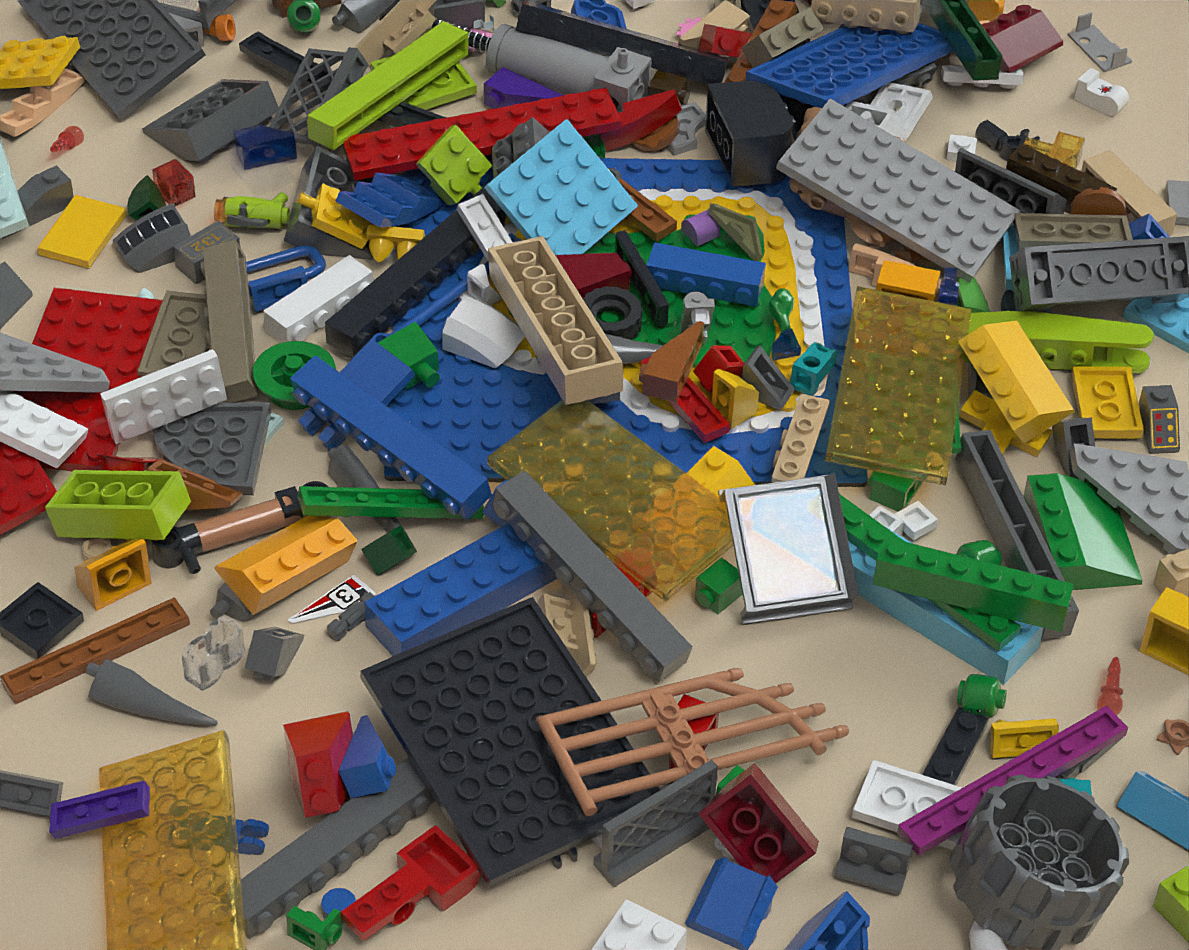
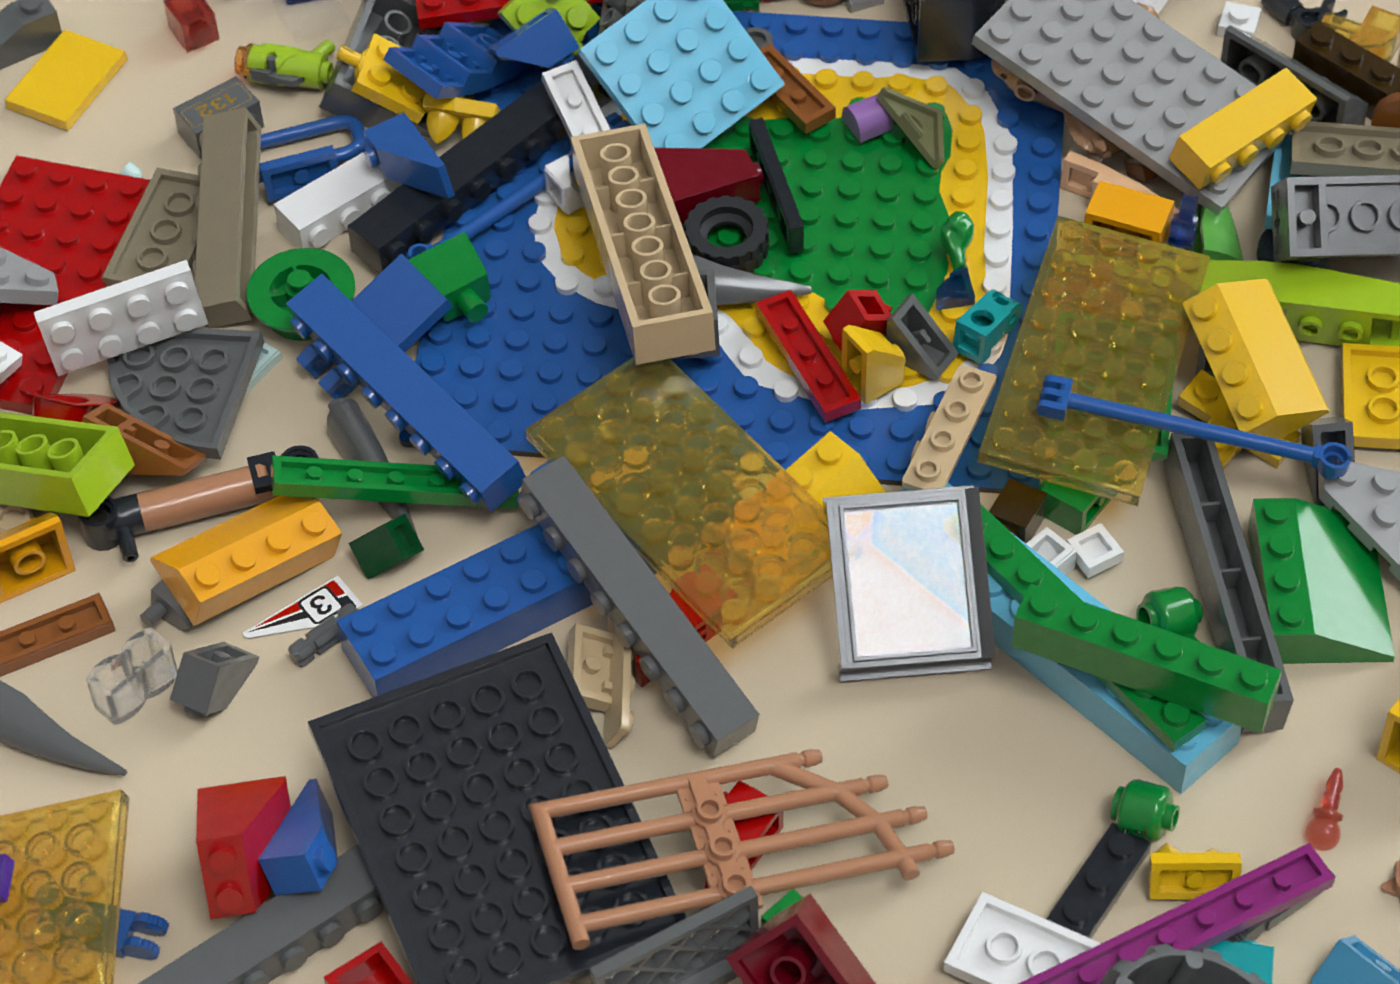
camera: 10 degrees right, 5 degrees up
(144, 199) = (154, 44): dark green brick -> none
(151, 239) = (145, 97): dark grey slope -> none
(364, 269) = (406, 156): none -> blue slope
(452, 182) = (539, 41): none -> blue slope
(480, 333) = (550, 249): white slope -> none
(672, 364) = (794, 311): dark orange slope -> none
(697, 308) = (839, 244): light grey hips -> none
(707, 273) = (863, 184): blue brick -> none
(718, 586) = (810, 627): green brick -> none
(859, 491) = (1020, 509): none -> dark brown brick
(877, 412) = (1057, 397): none -> blue hinge
(982, 219) = (1243, 129): none -> yellow brick

